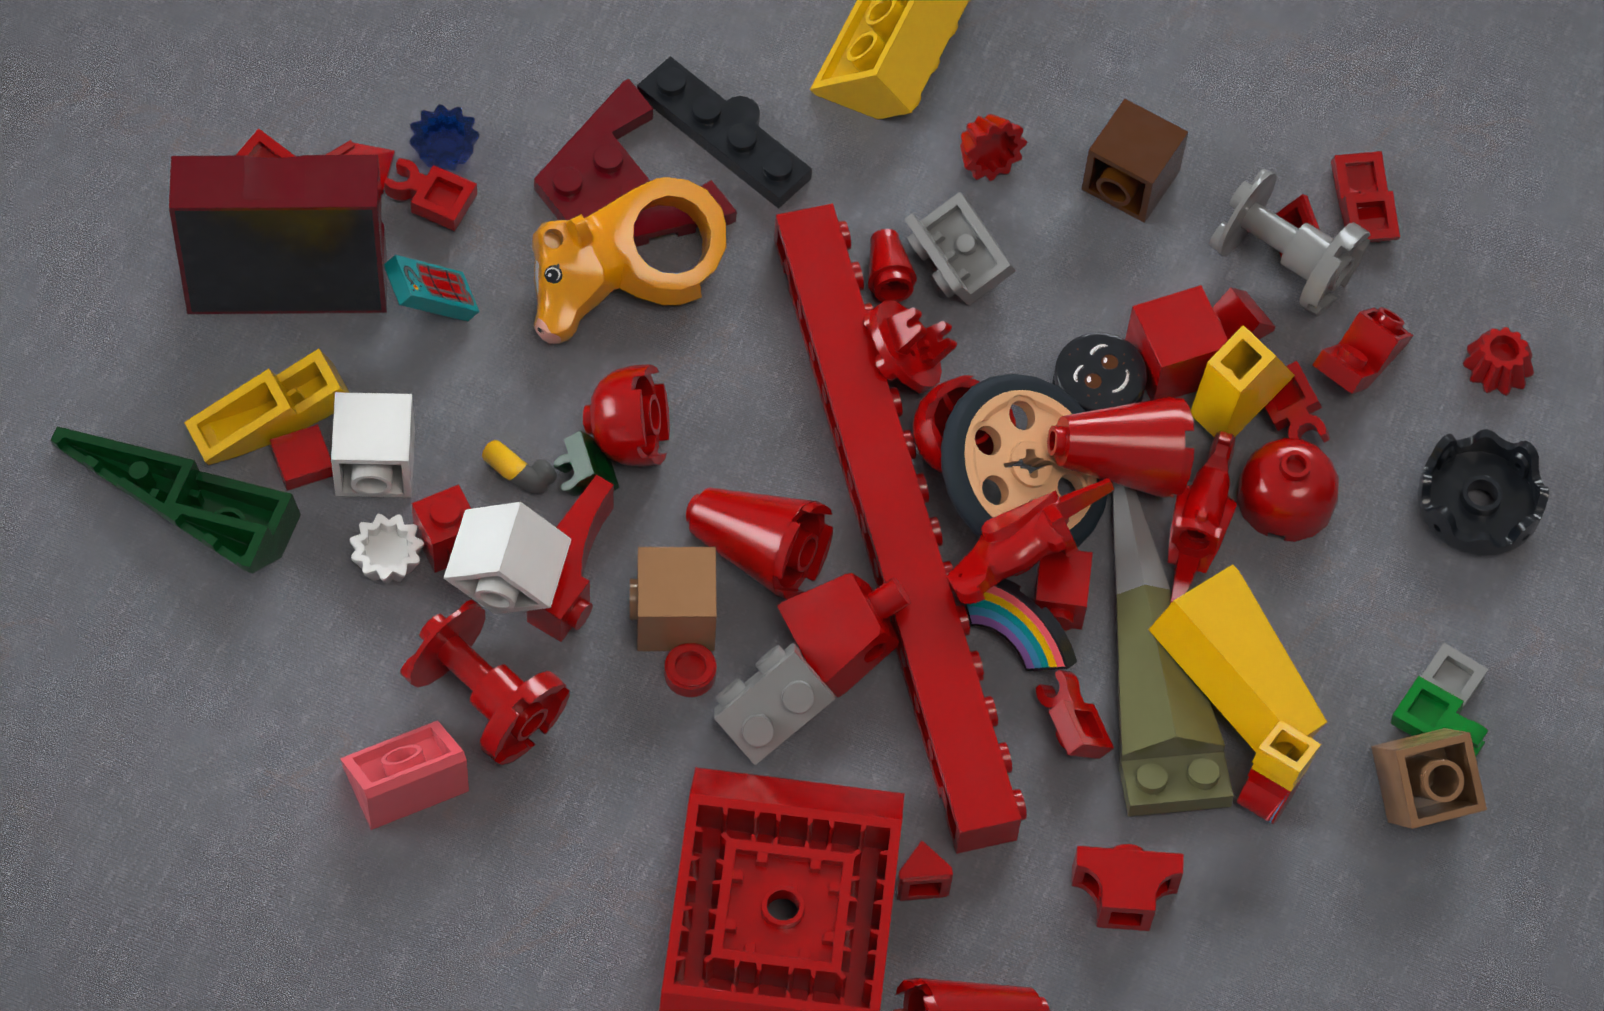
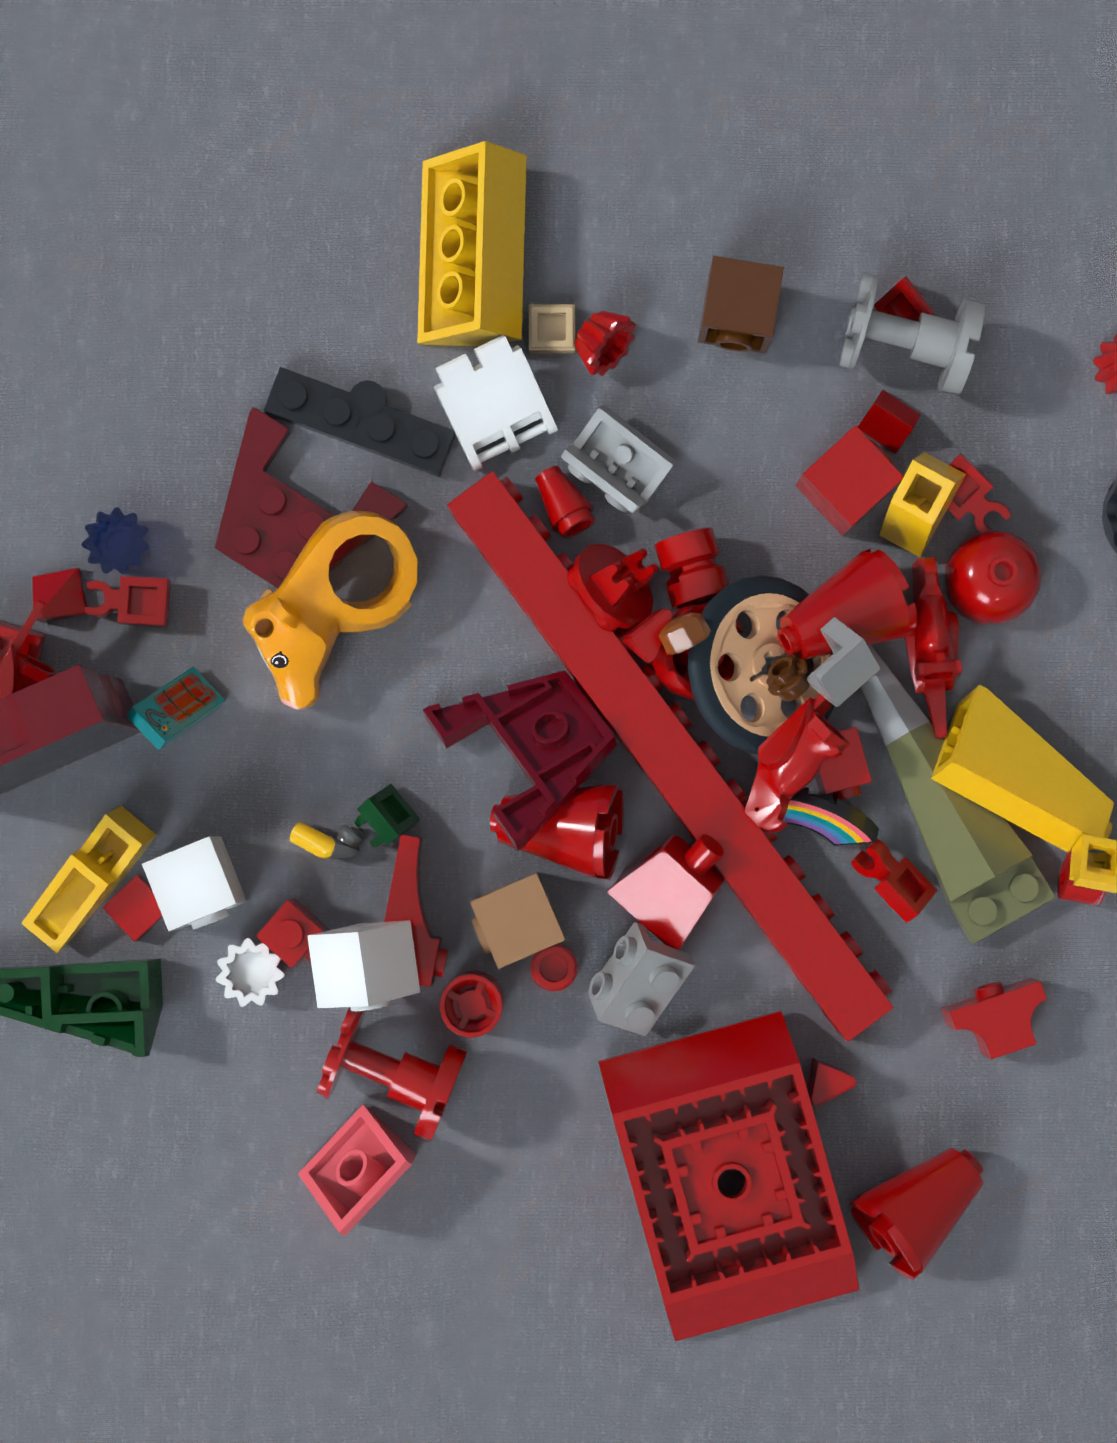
camera: 15 degrees left, 25 degrees up
(594, 657) = (472, 1004): none -> red wheel
(629, 416) = (403, 762): red cylinder -> none
(778, 446) = (547, 732): none -> dark red wing
(860, 152) = (492, 400): none -> white plate
(918, 381) = (644, 637): none -> red slope
(943, 123) = (551, 328): none -> tan tile
(956, 380) = (684, 632): none -> dark orange tile
(990, 348) = (691, 567): none -> red wheel
(1042, 473) = (788, 678): none -> reddish brown plate
(1098, 462) = (846, 668): none -> light grey panel
(1101, 371) = (792, 540): black head -> none
(1364, 349) = (1008, 409): red slope -> none
(1365, 195) = (952, 248): red slope -> none

